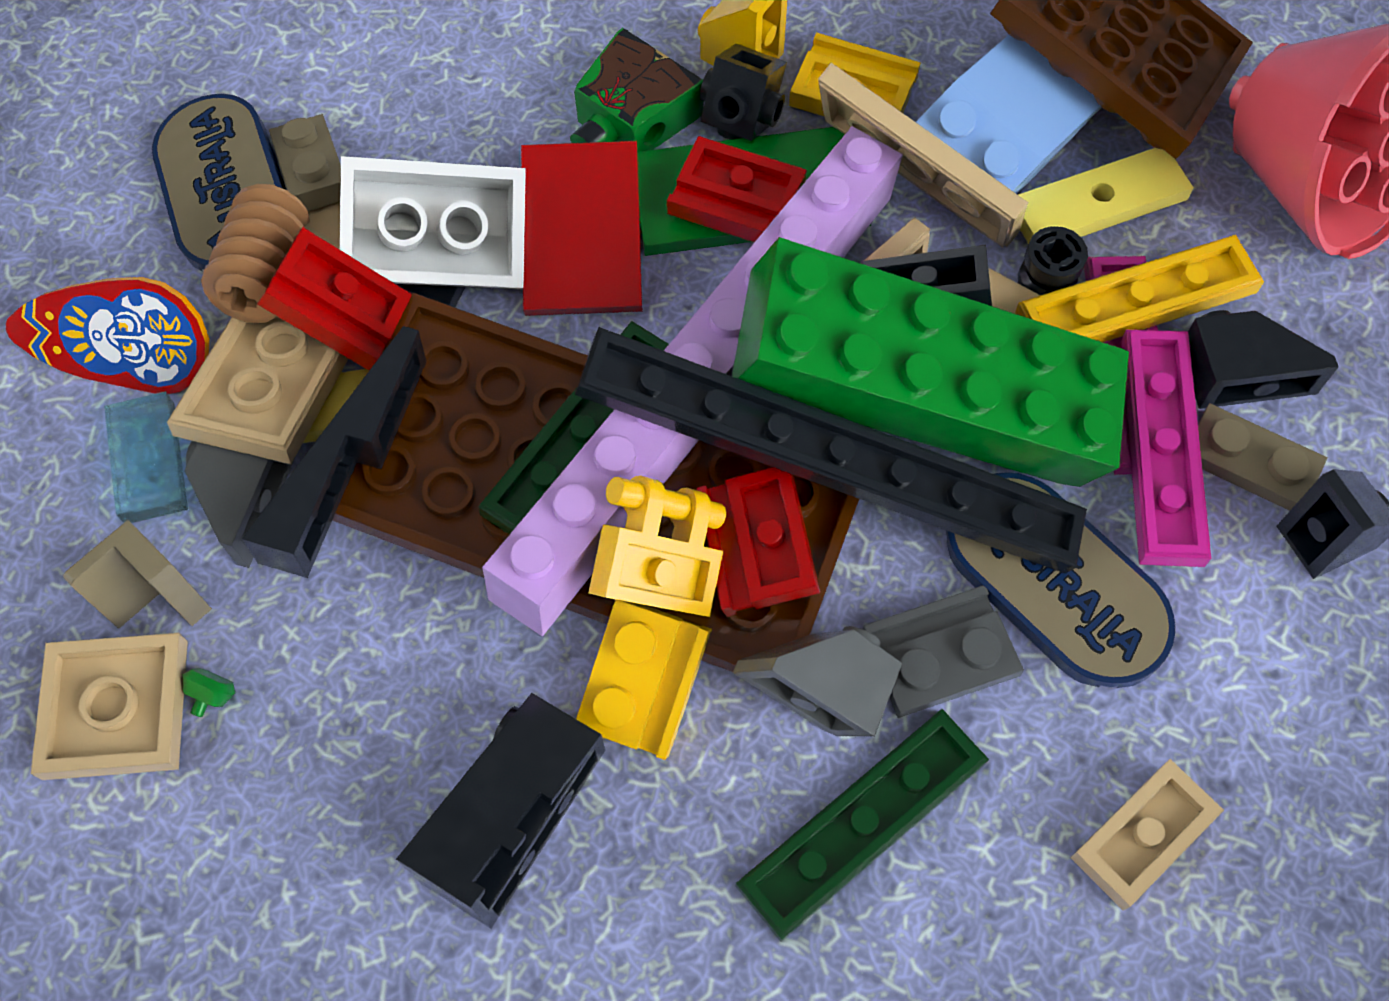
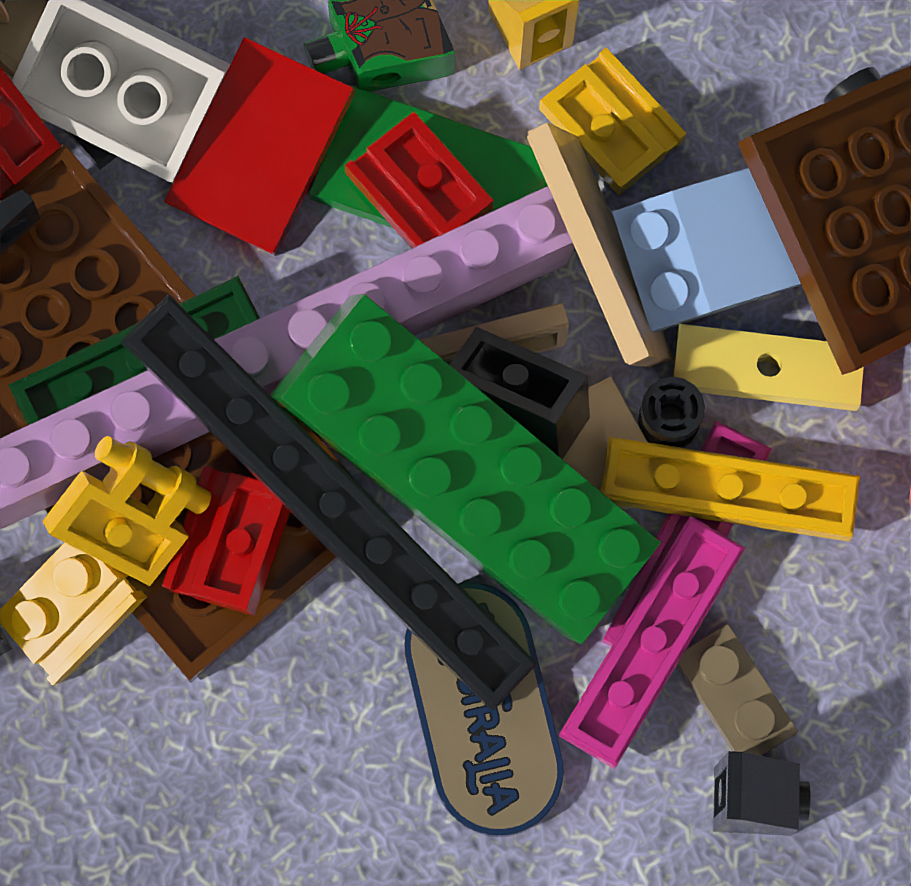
camera: 25 degrees right, 10 degrees up
(743, 93) = (489, 82): black brick -> none
(828, 679) = (219, 689): dark grey slope -> none
(861, 824) = (184, 825): dark green tile -> none
(946, 650) = (341, 717): dark grey plate -> none
(1253, 360) = (789, 603): black slope -> none

